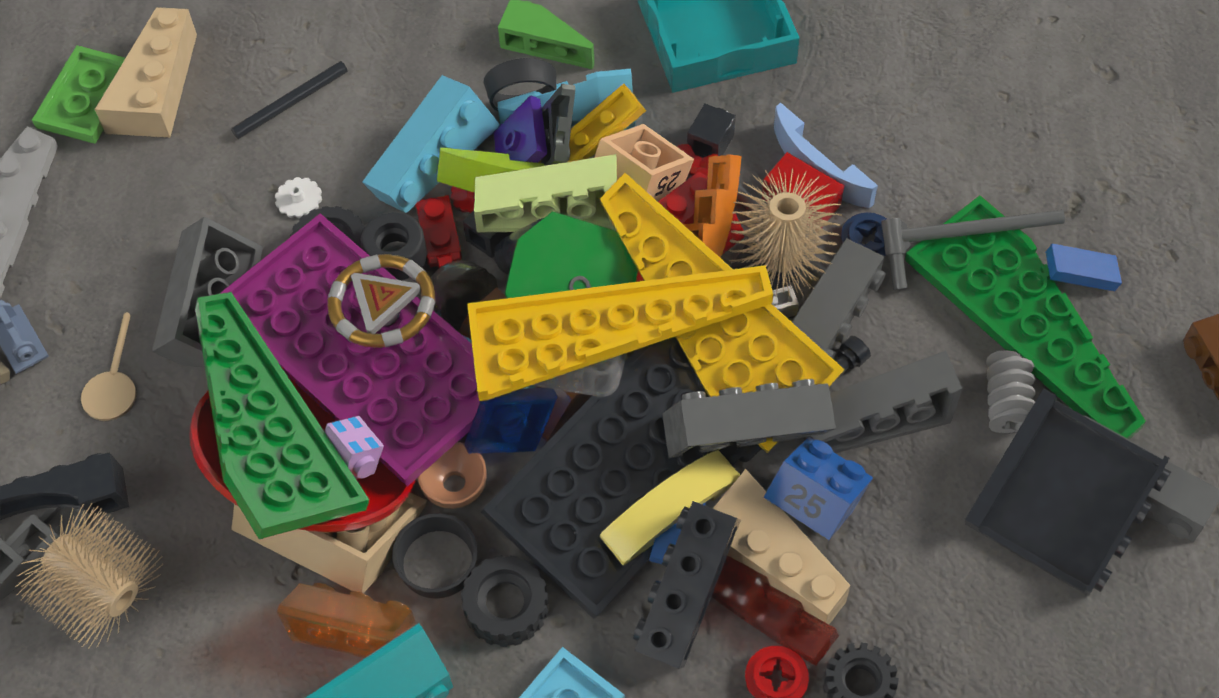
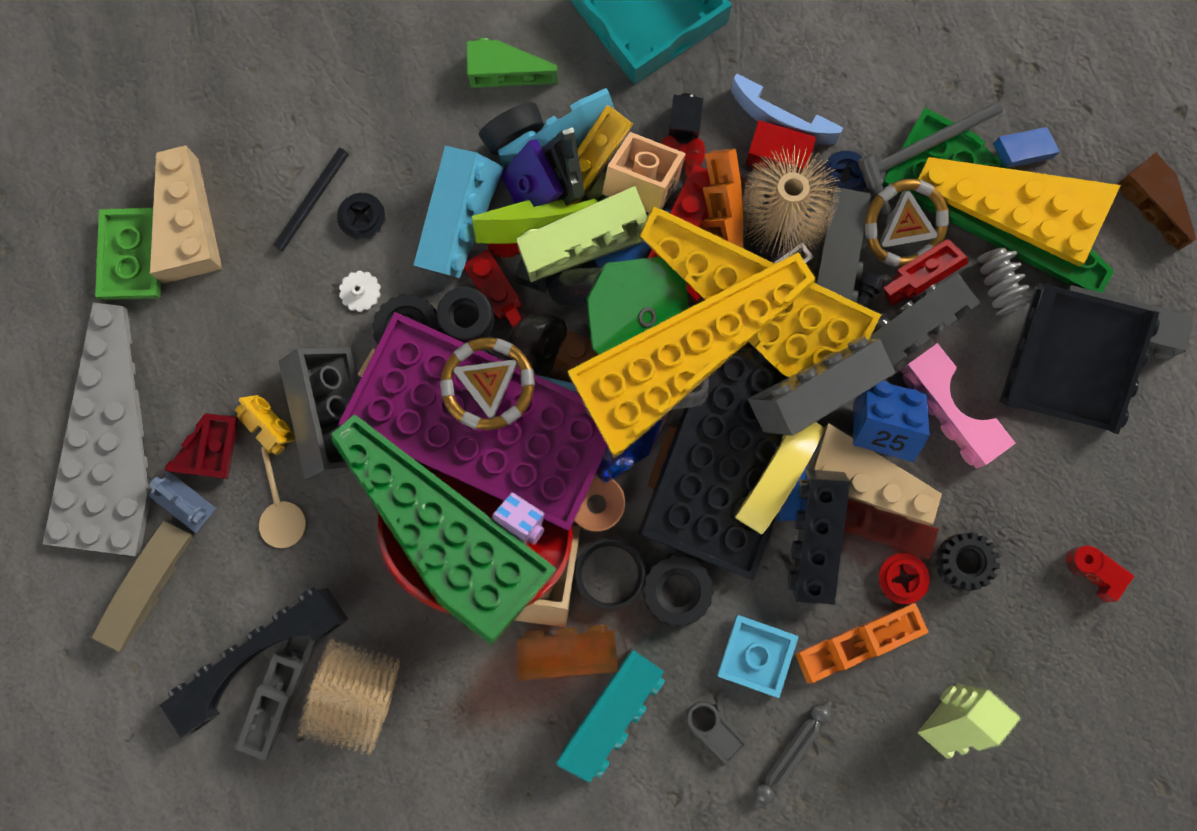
camera: 20 degrees left, 20 degrees up
(69, 294) = (208, 448): none -> dark red wing
(136, 277) = (256, 413): none -> yellow hinge
(338, 117) = (361, 203): none -> black gear
(913, 351) = (925, 272): none -> red hinge
(915, 299) = (906, 222): none -> piece
(922, 549) = (978, 439): none -> bright pink arch
(1076, 330) = (1036, 207): none -> yellow wing

